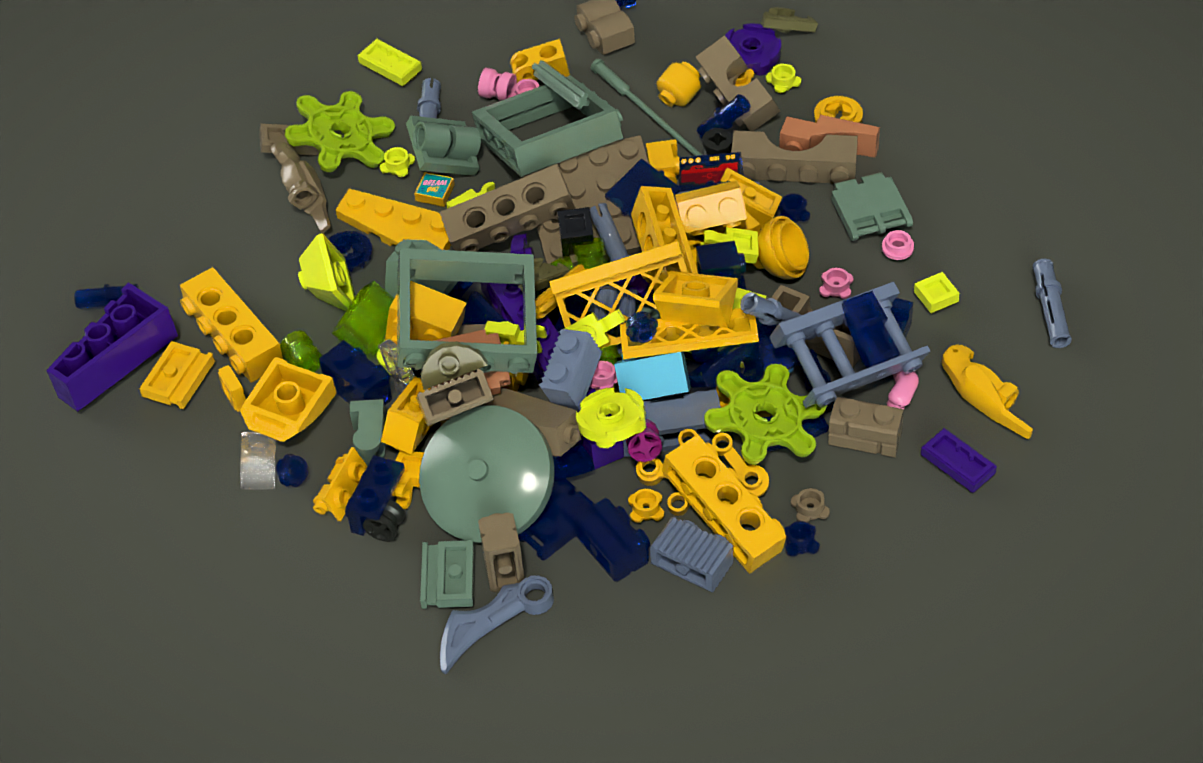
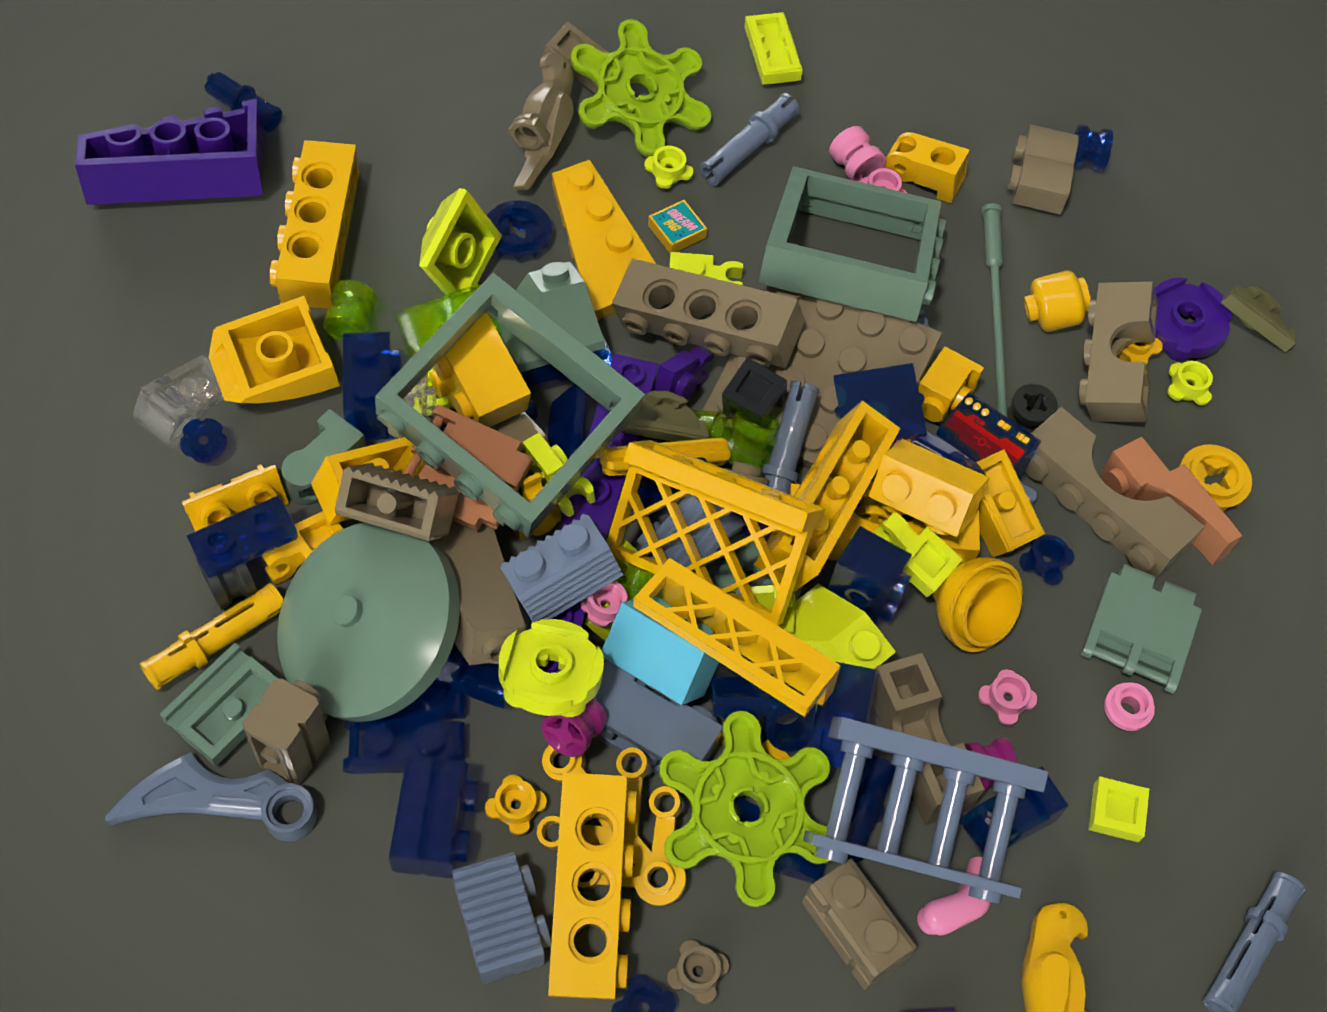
camera: 30 degrees right, 10 degrees up
(177, 375) = (213, 239): yellow plate -> none
(232, 387) = (244, 293): yellow tile -> none
(402, 563) = (195, 647): none -> yellow pin
(444, 145) = (727, 183): sand green plate -> none
(449, 362) = (420, 457): olive plate -> none
(560, 84) = (909, 206): sand green axle -> none
(598, 328) = (637, 542): neon yellow plate -> none
(641, 327) = (678, 586): clear blue plate -> none
(696, 298) = (775, 600): yellow slope -> none
(726, 115) = (1070, 381): clear blue axle -> none
(768, 310) = (856, 691): sand blue pin -> none
(867, 327) = (958, 812): clear blue slope -> none

